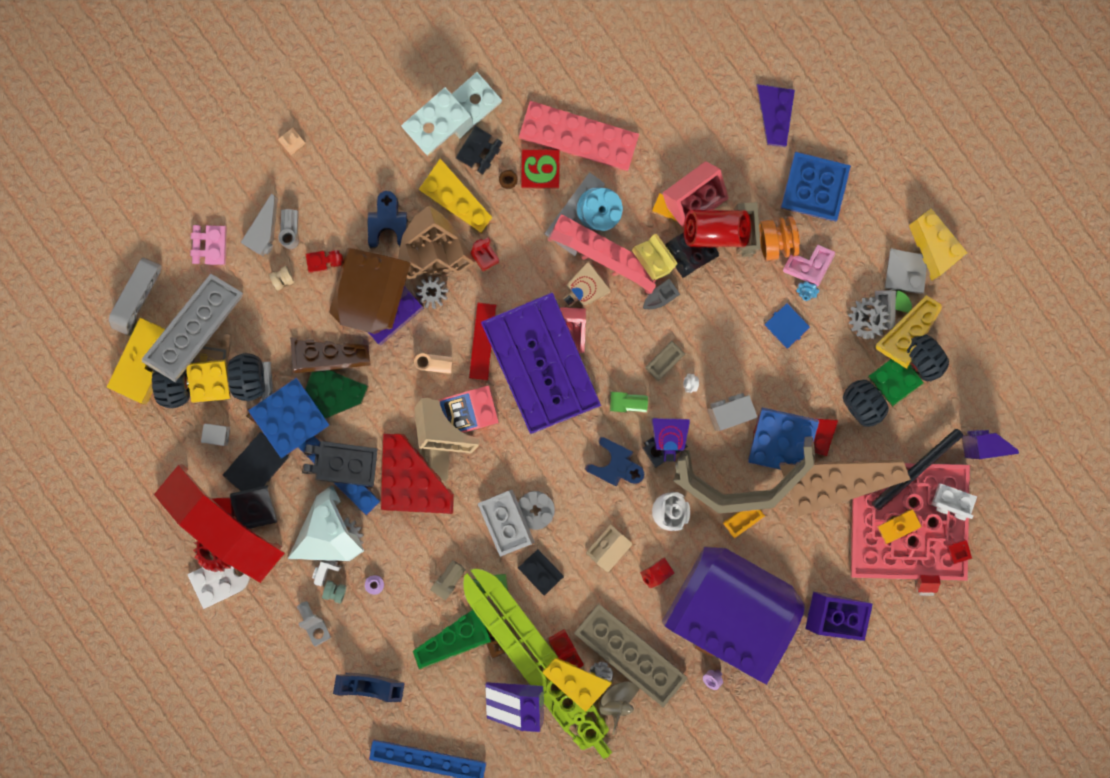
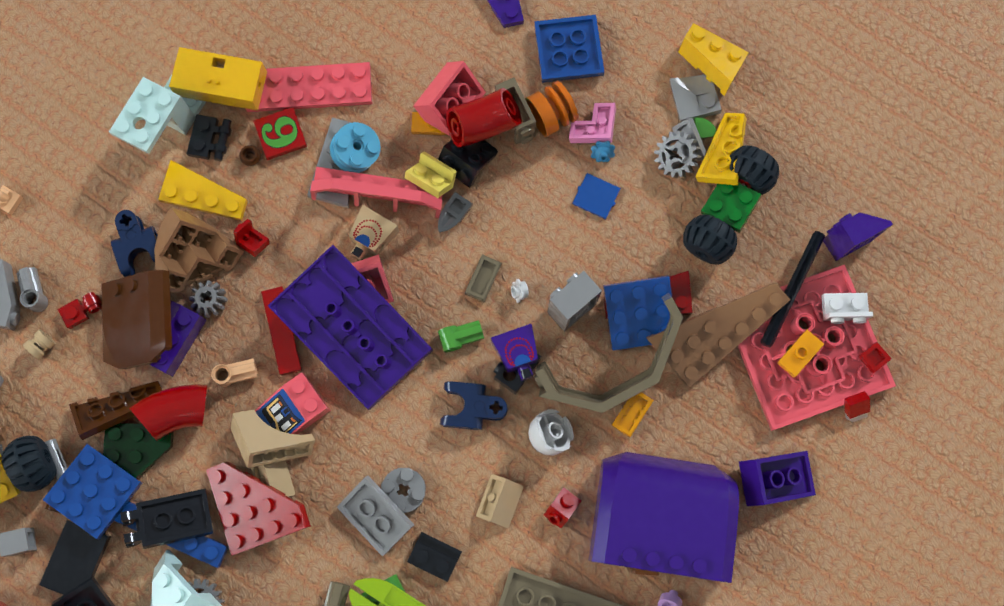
camera: 25 degrees left, 10 degrees down
(374, 377) = (172, 409): none -> red brick
(505, 104) = (218, 78): none -> yellow brick

